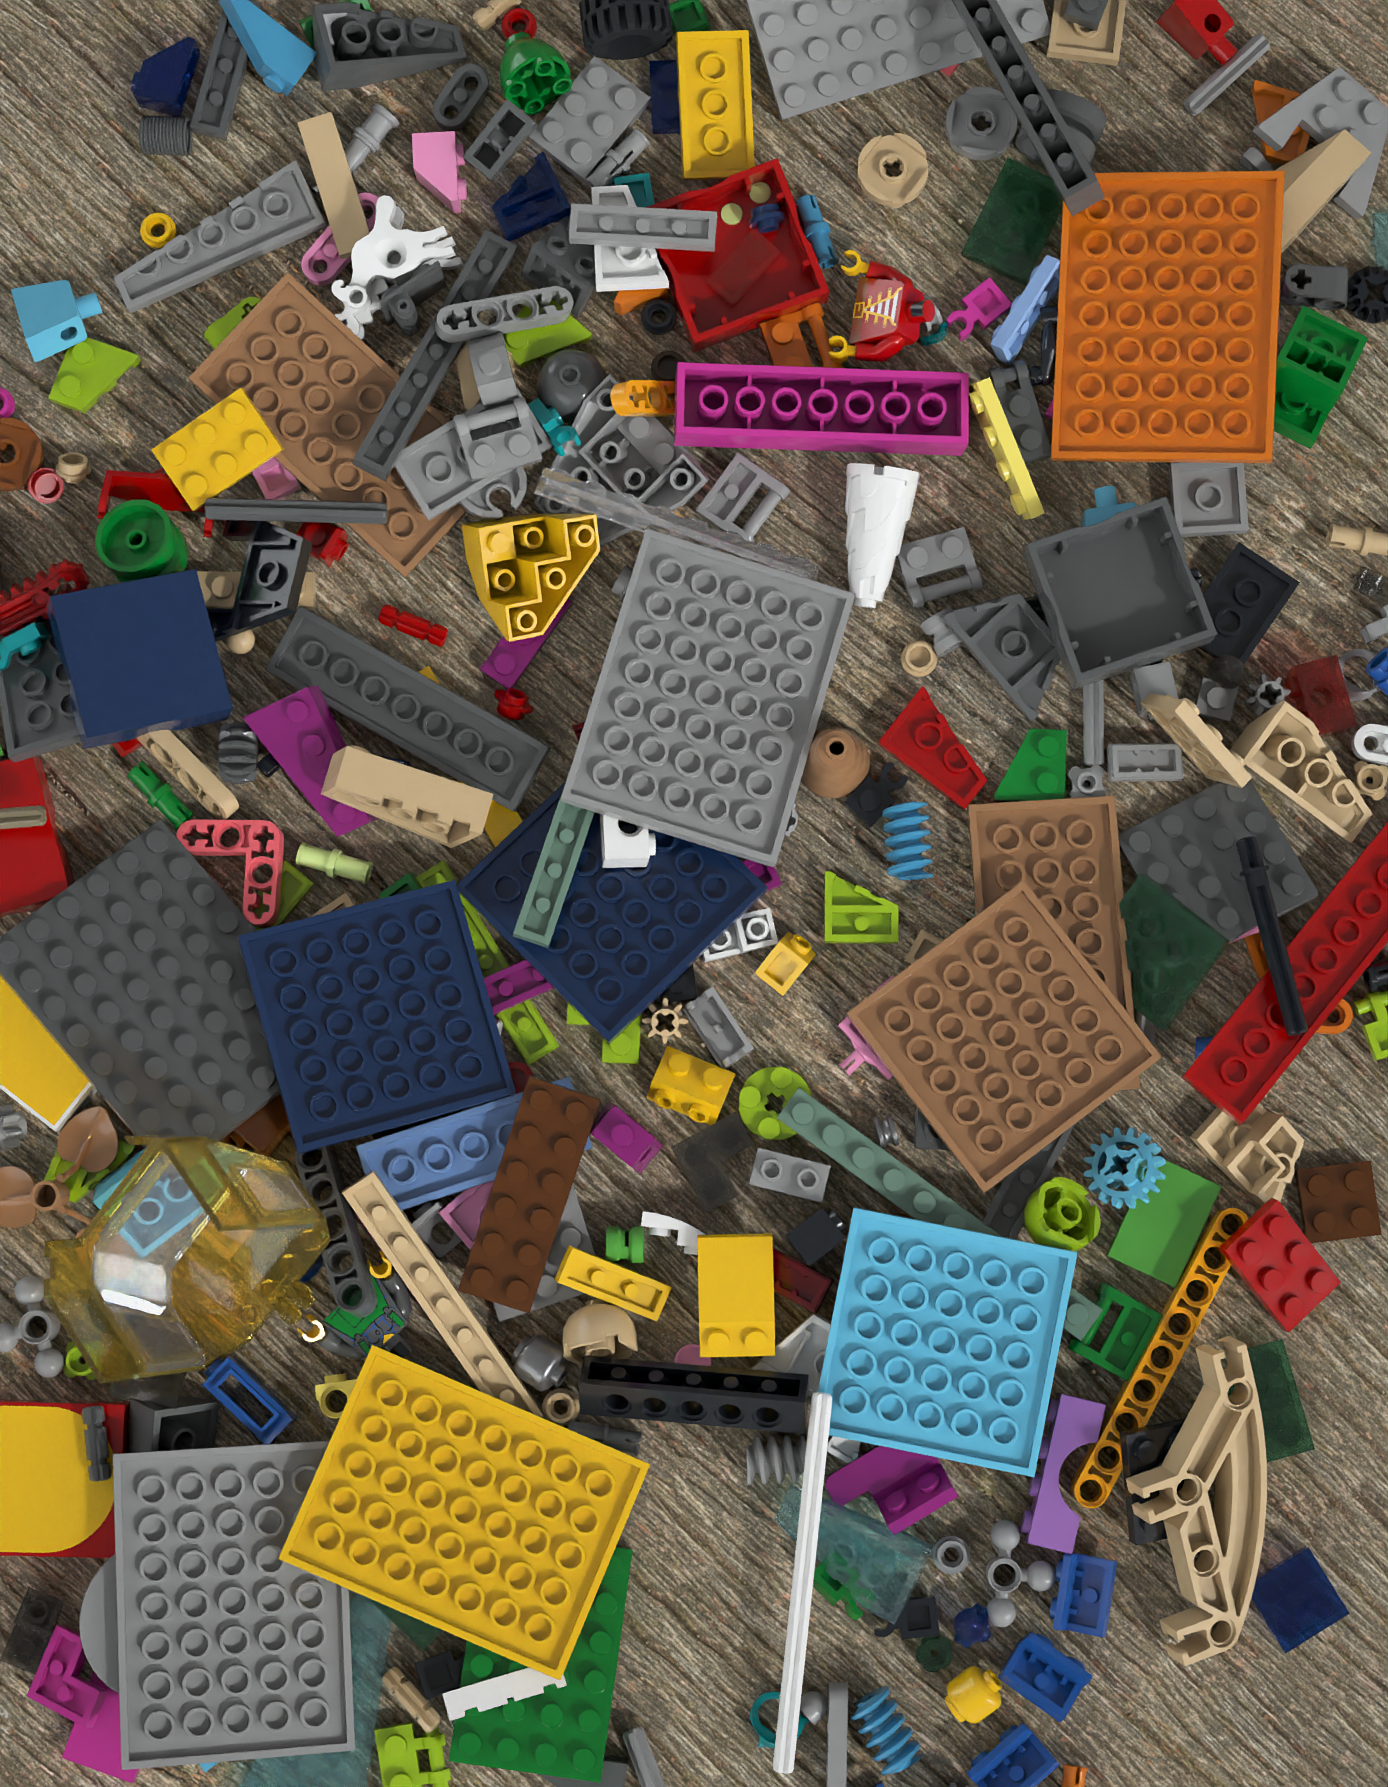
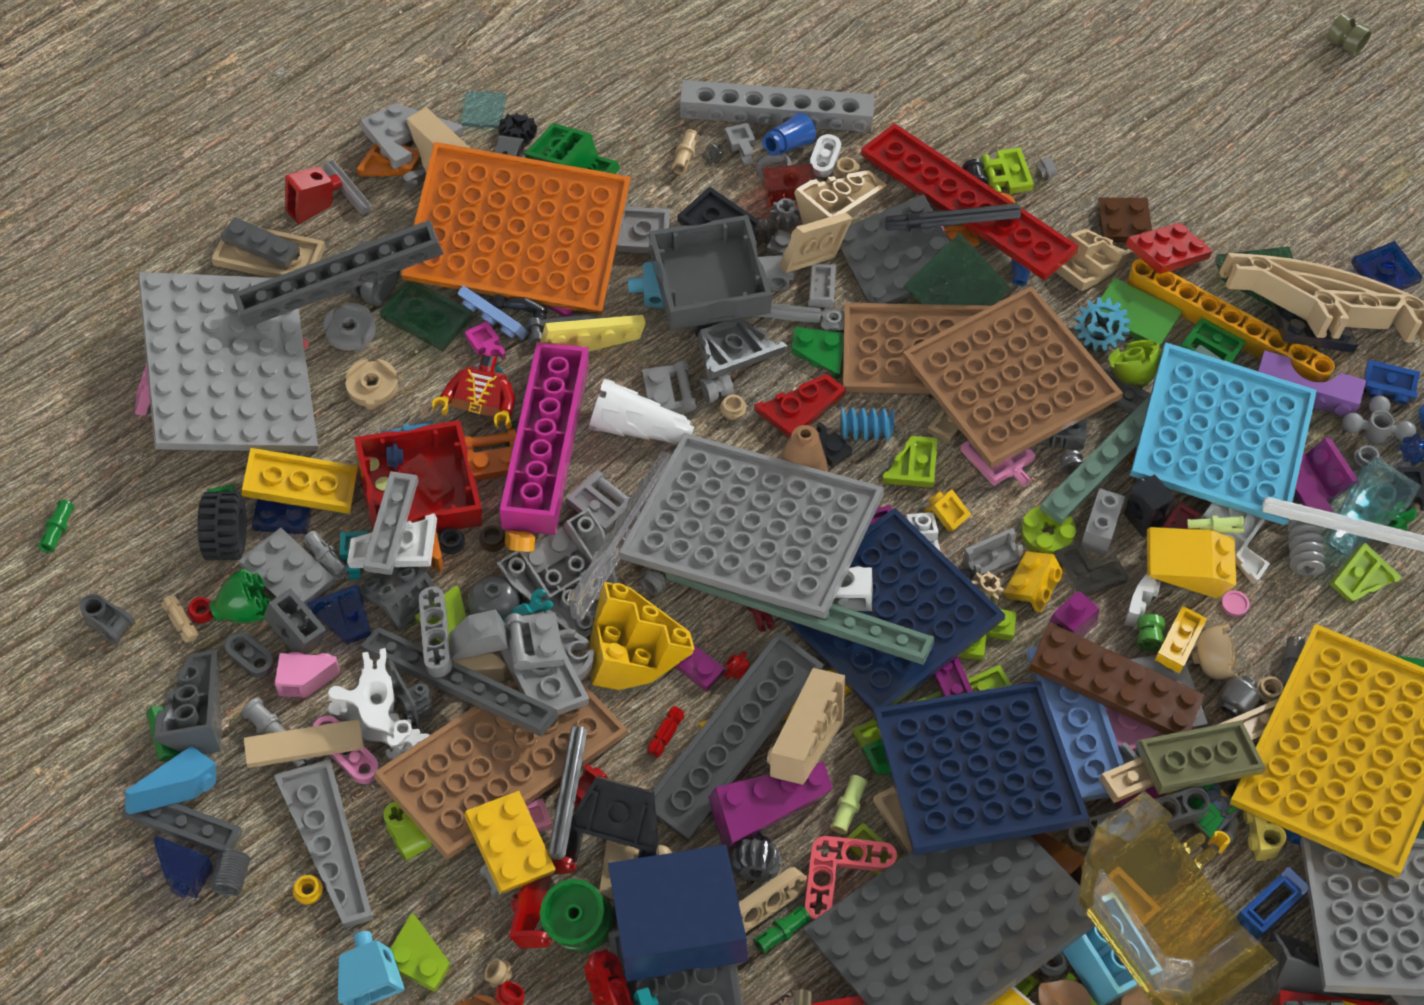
camera: 90 degrees left, 25 degrees down
(419, 1302) = (1200, 757): none -> olive tile
(694, 1394) = (1262, 593): black brick -> none
(751, 1539) = (1363, 574): none -> lime wing
(790, 1329) = (1219, 525): none -> yellowish green pin

